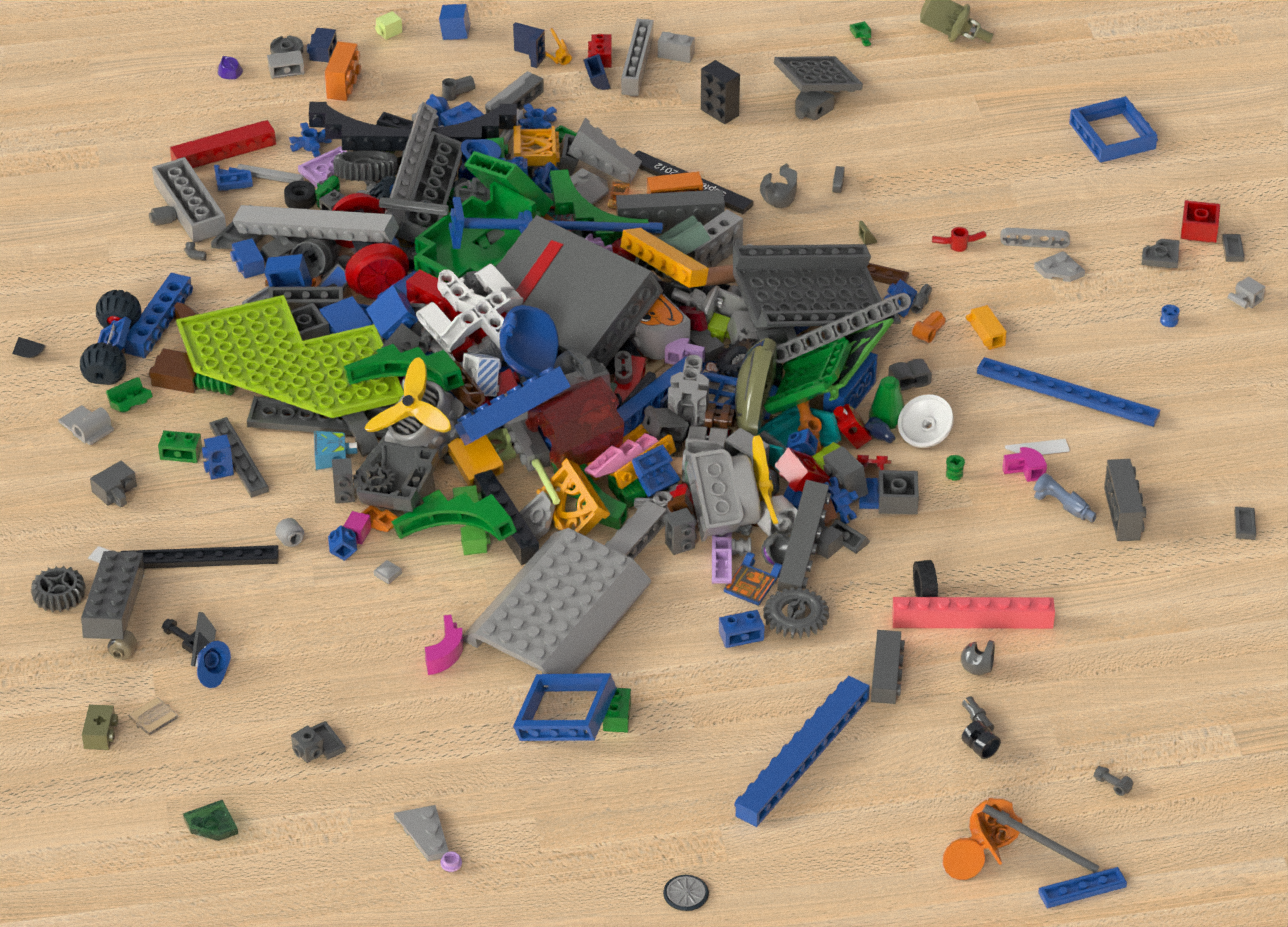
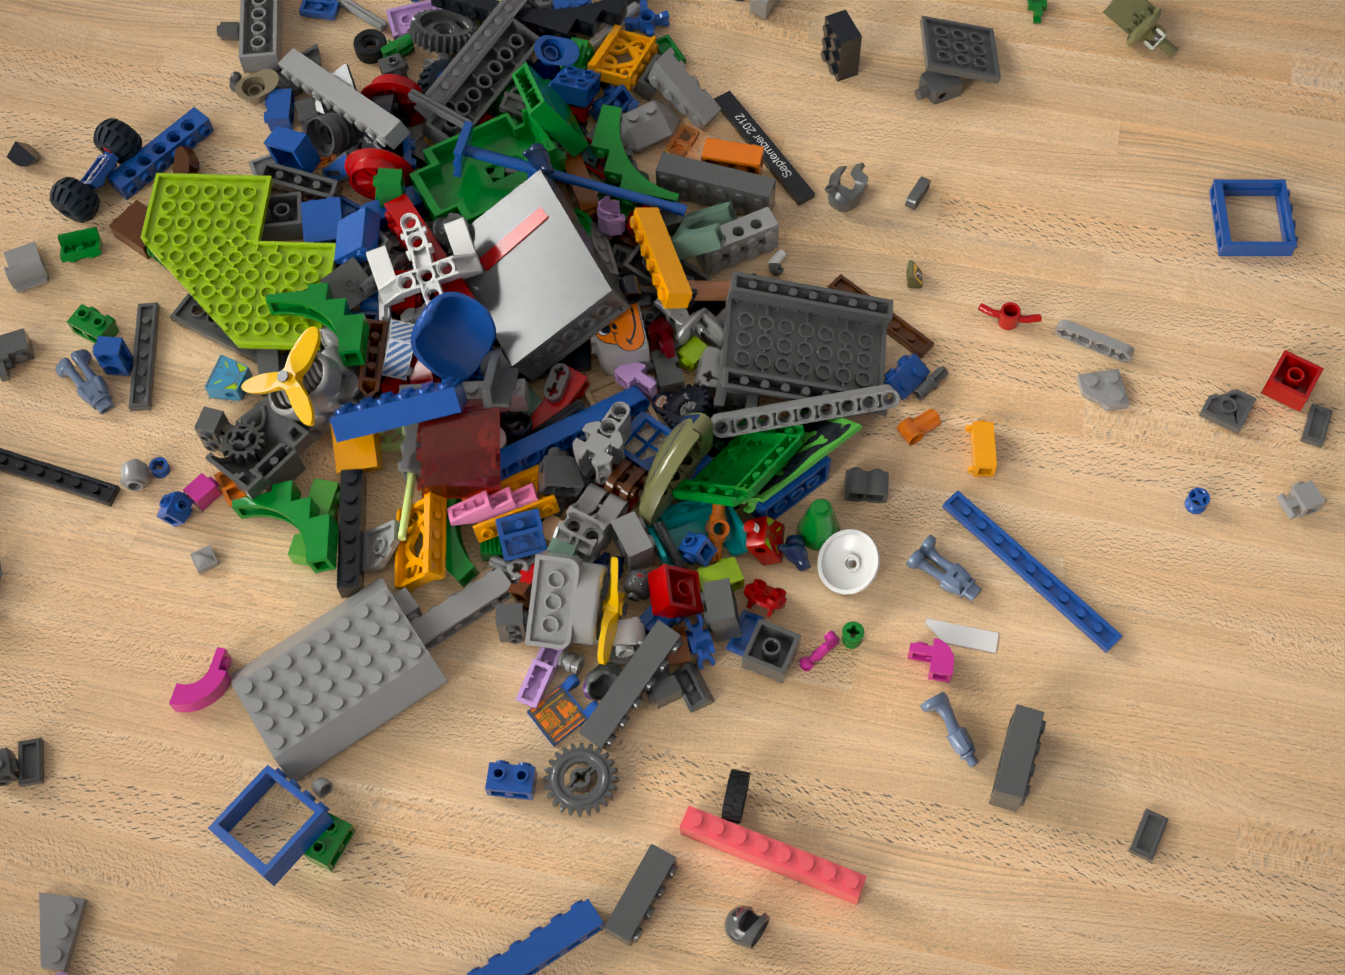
camera: 25 degrees right, 20 degrees up
(211, 488) = (92, 391): none -> sand blue piece
(218, 244) = (257, 86): none -> dark tan piece
(307, 523) = (159, 461): none -> blue bush
(402, 267) = (389, 185): none -> green brick
(526, 210) = (539, 158): none -> dark blue animal
(939, 478) = (832, 641): none -> dark pink arm
(1009, 411) = (956, 578): none -> sand blue piece

